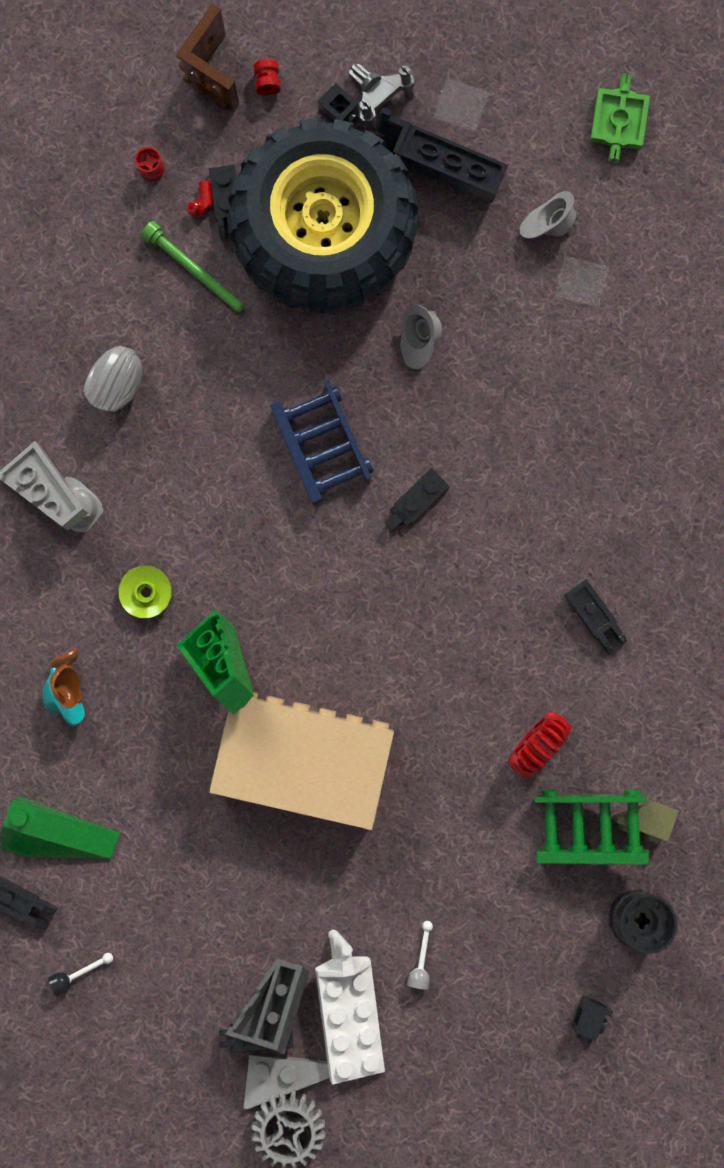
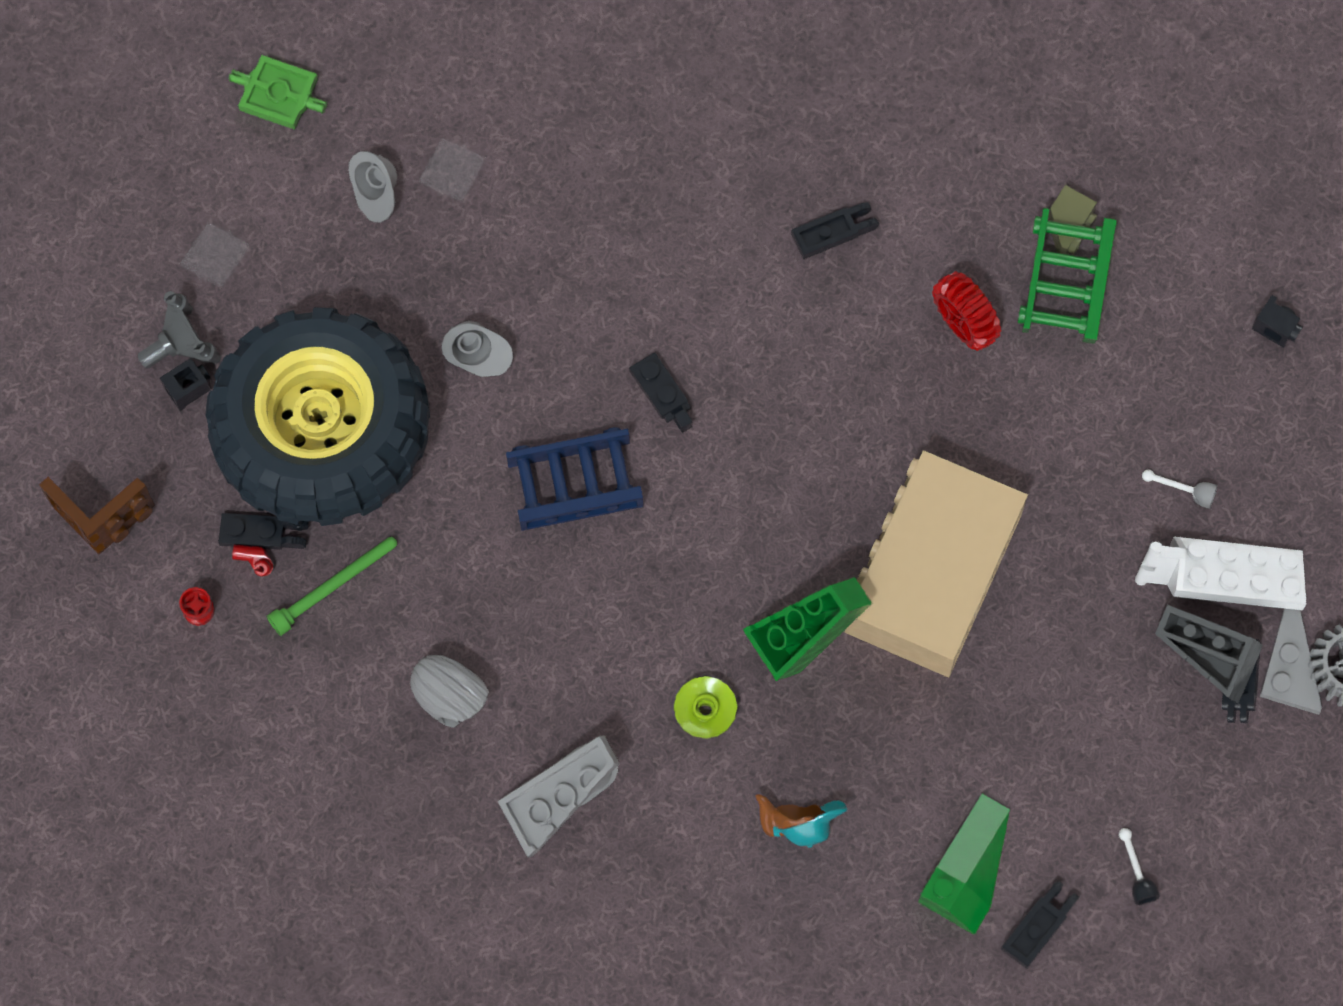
camera: 75 degrees left, 15 degrees down
(266, 73) = (127, 456): red wheel -> none
(441, 157) = (278, 280): black hinge -> none
(657, 927) = (1181, 230): black wheel -> none

